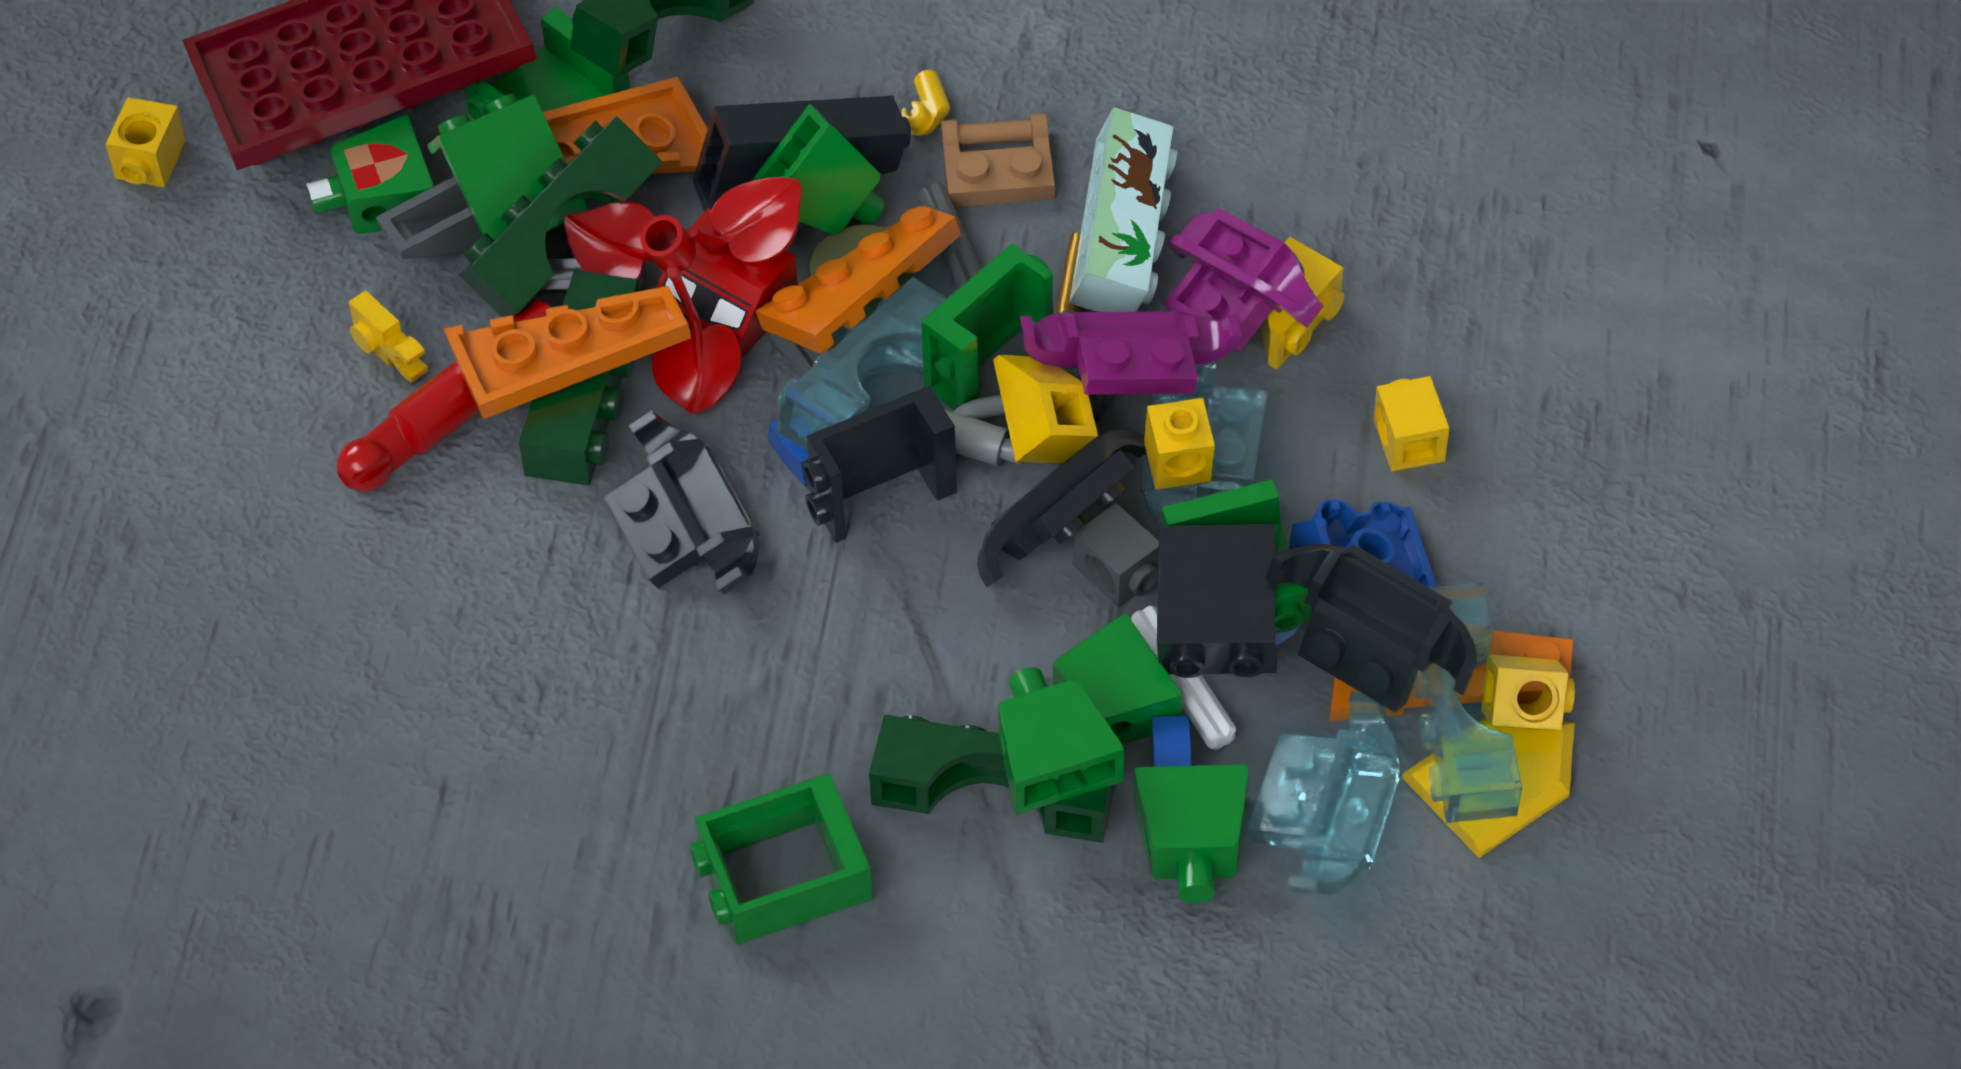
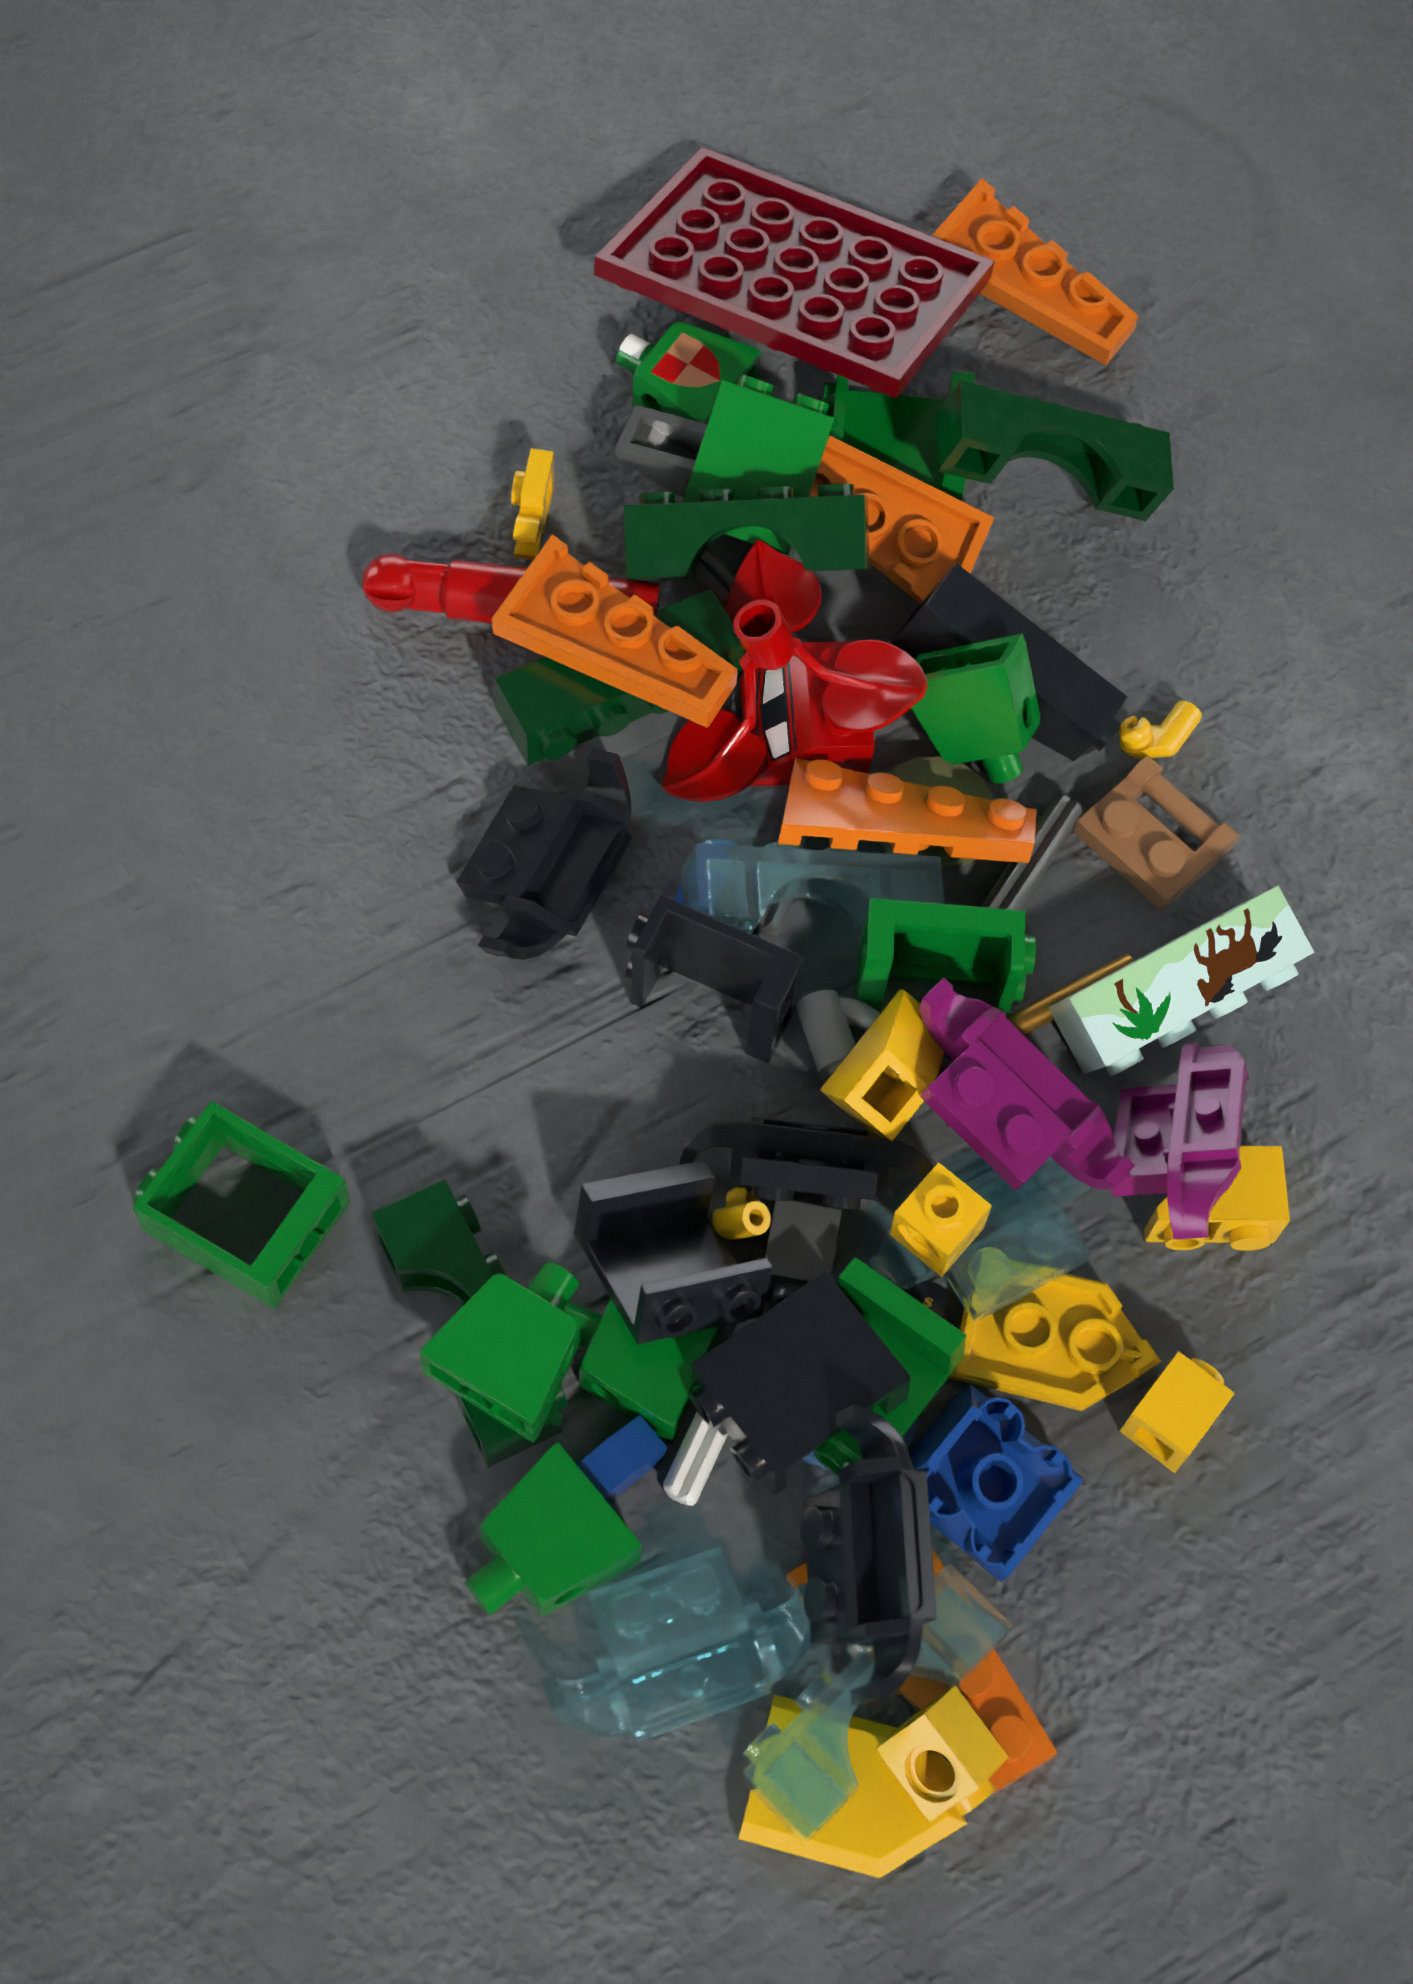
camera: 45 degrees right, 10 degrees up
(146, 142) = (577, 197): yellow brick -> none
(1058, 629) = (663, 1255): none -> black panel
(1063, 572) = (742, 1216): none -> yellow arm
(1311, 457) = (1056, 1345): none -> yellow tile

